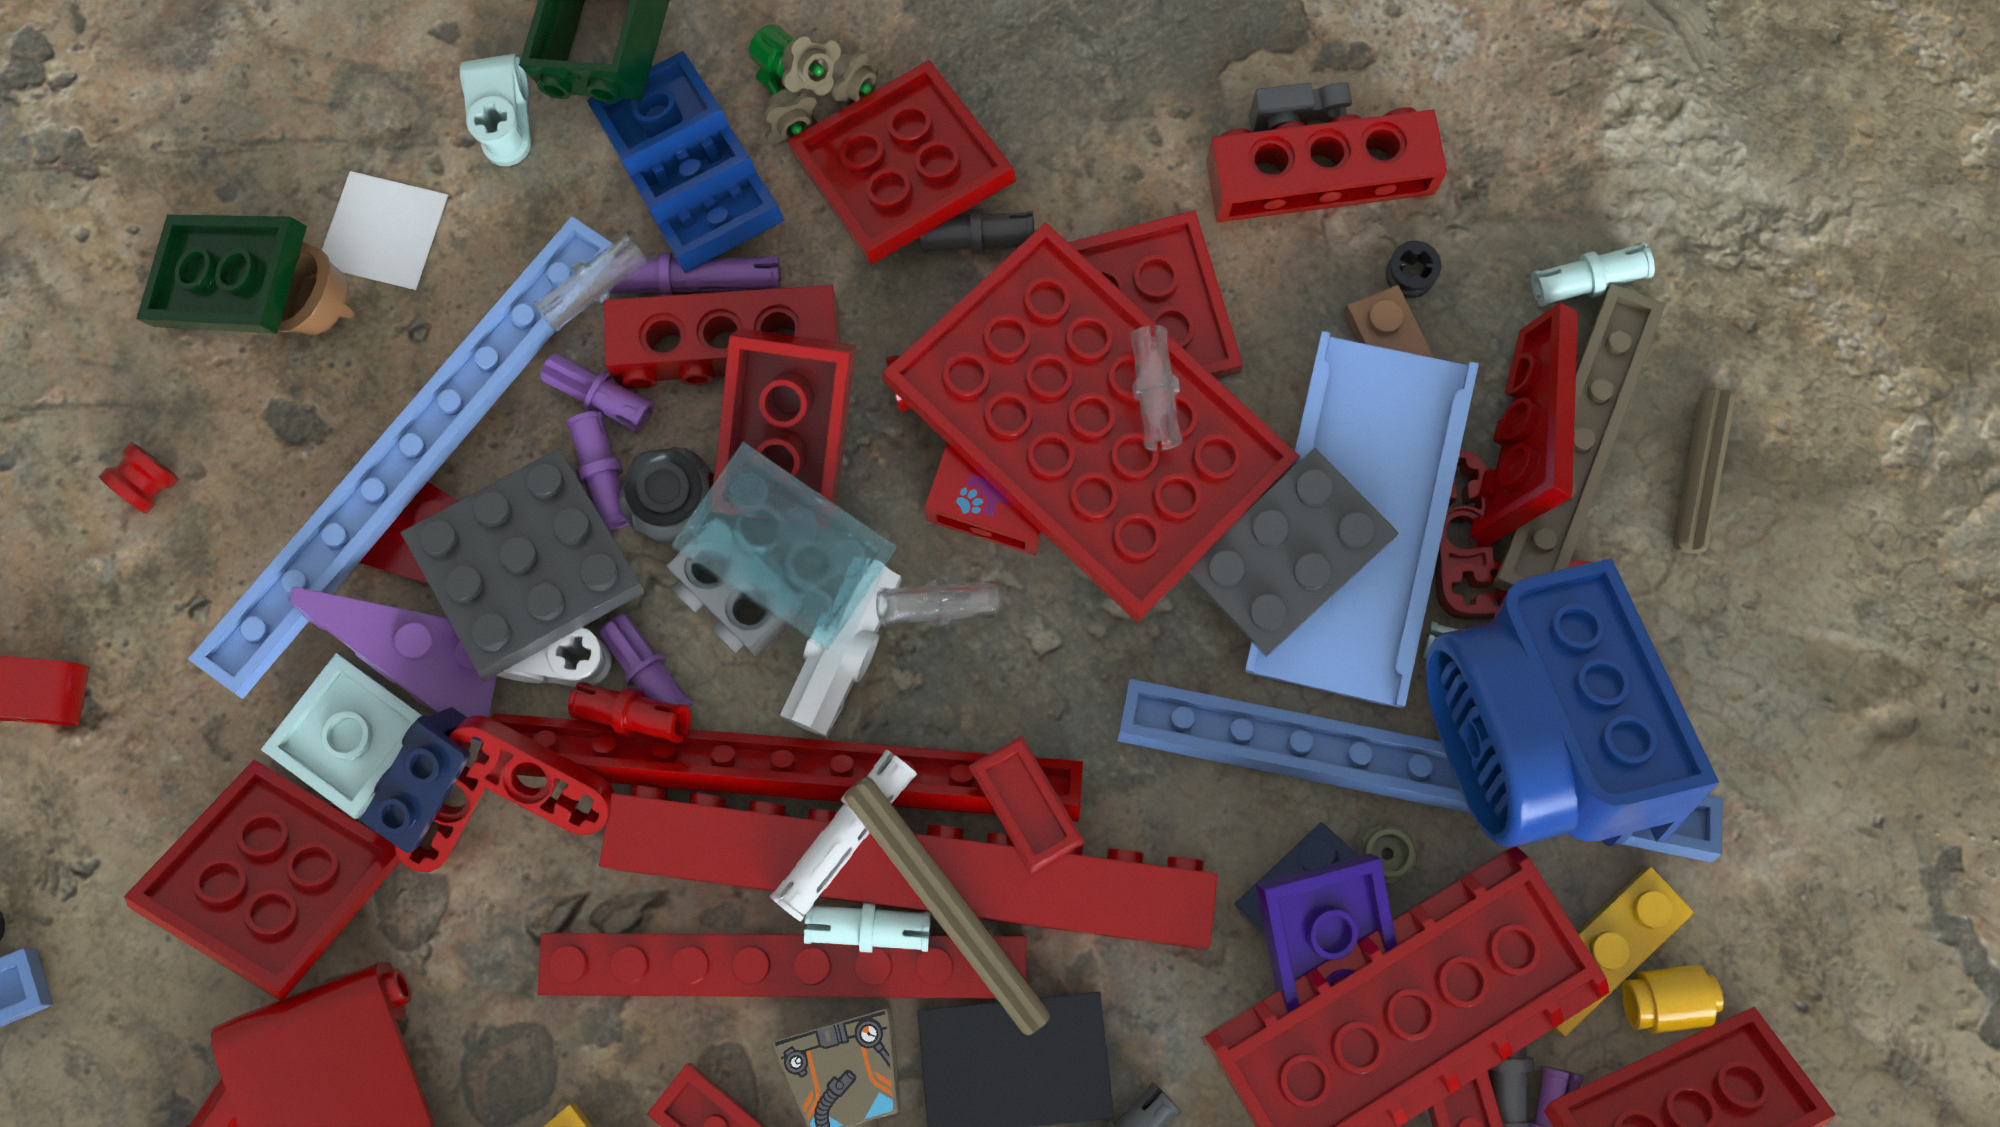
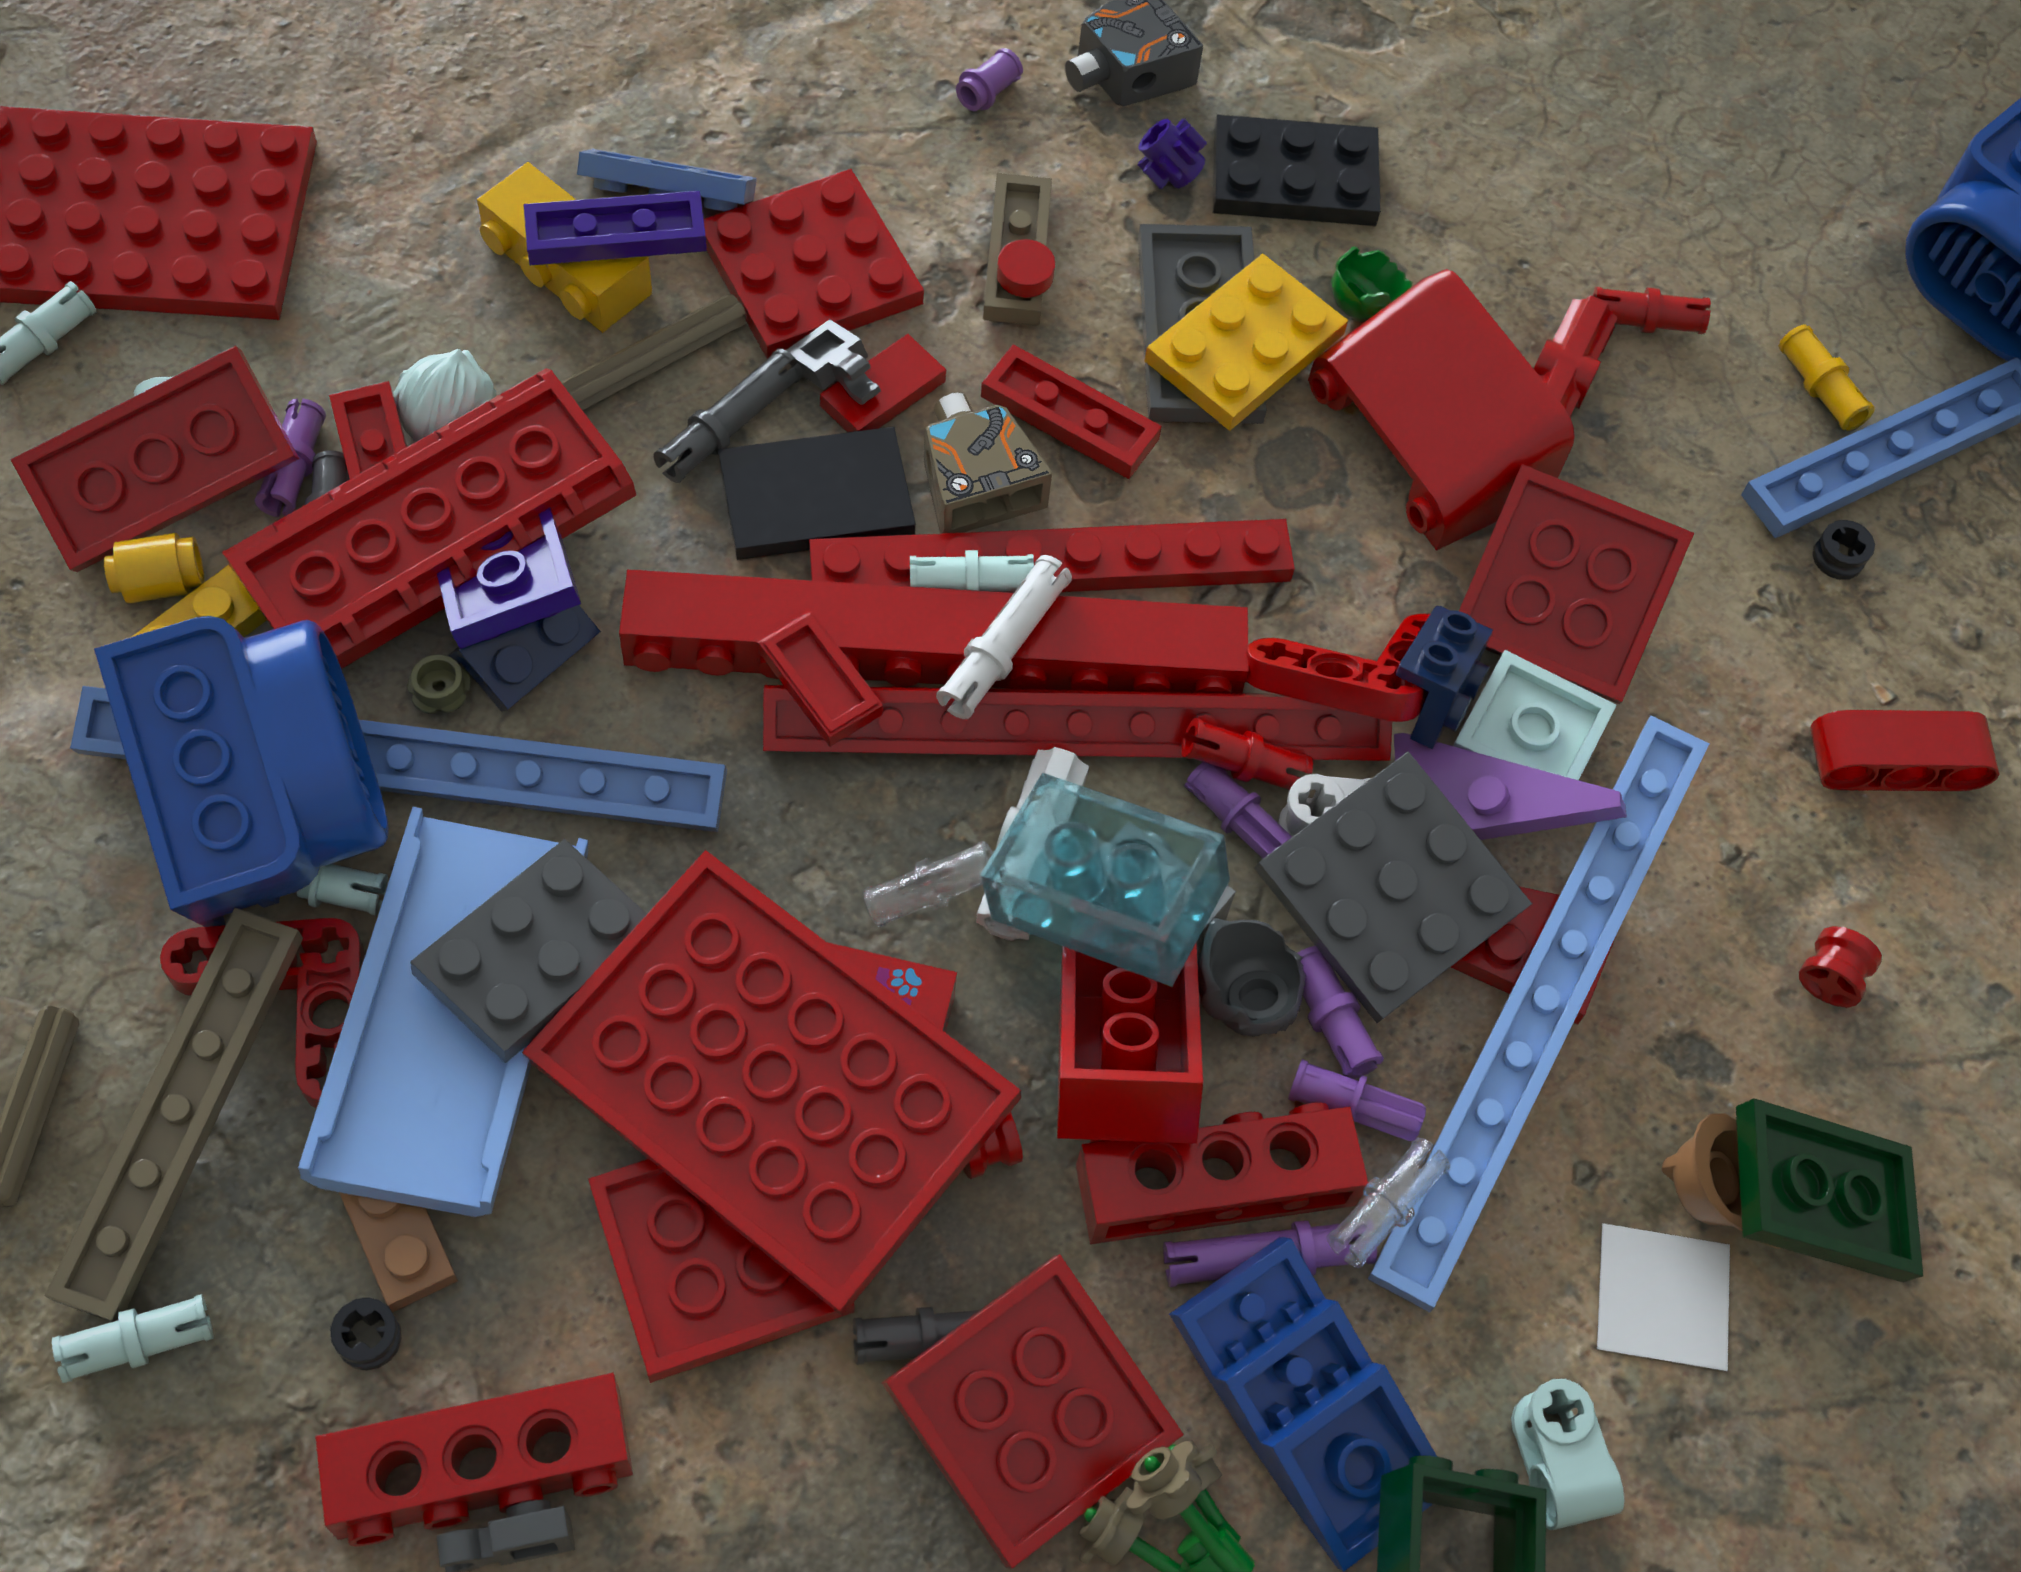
camera: 165 degrees right, 15 degrees down
(946, 905) = (897, 581): dark tan axle -> none
(1155, 388) = (695, 1098): clear pin -> none
(1535, 430) = (231, 1115): red wing -> none

